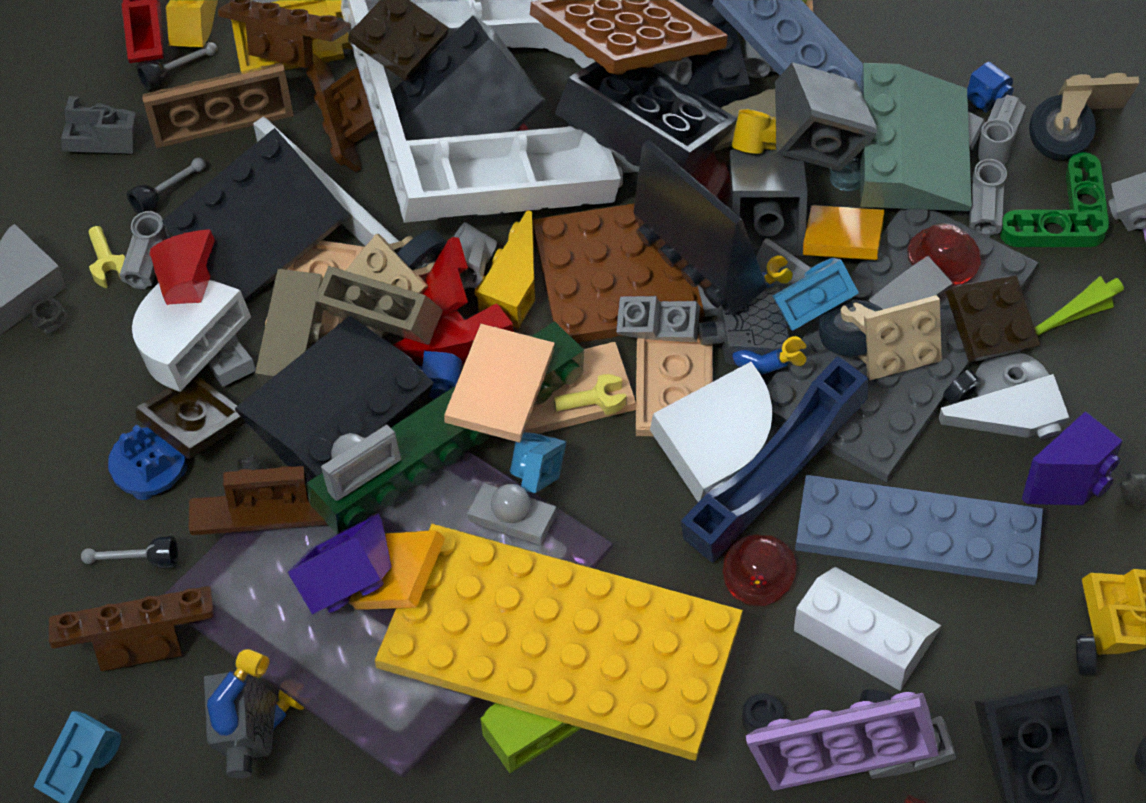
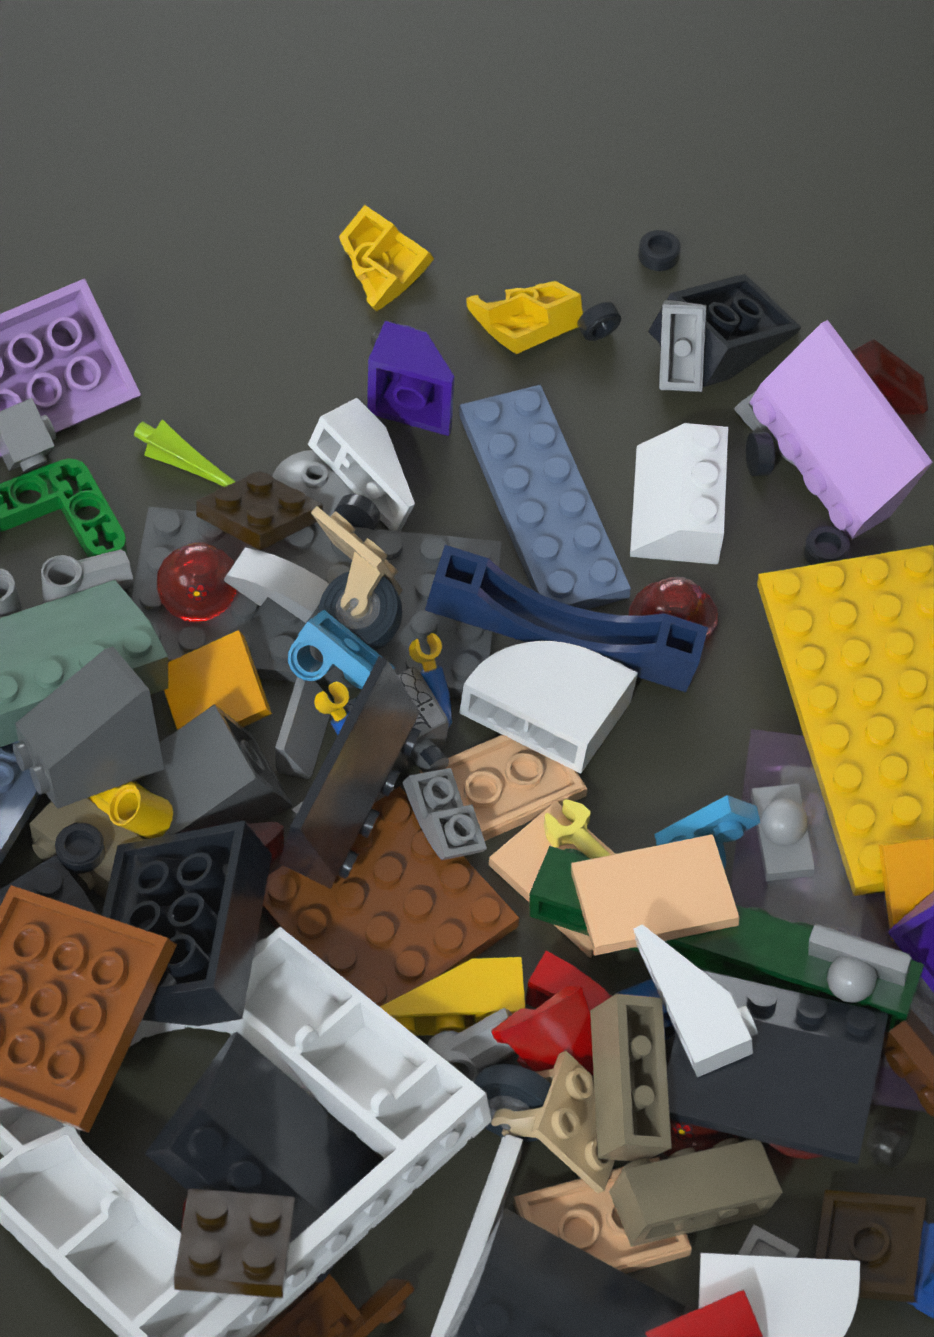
camera: 125 degrees left, 0 degrees up
(394, 342) = (699, 1008): none -> white slope
(747, 96) = (80, 847): none -> black tile
(1015, 679) = (682, 346): none -> light grey slope

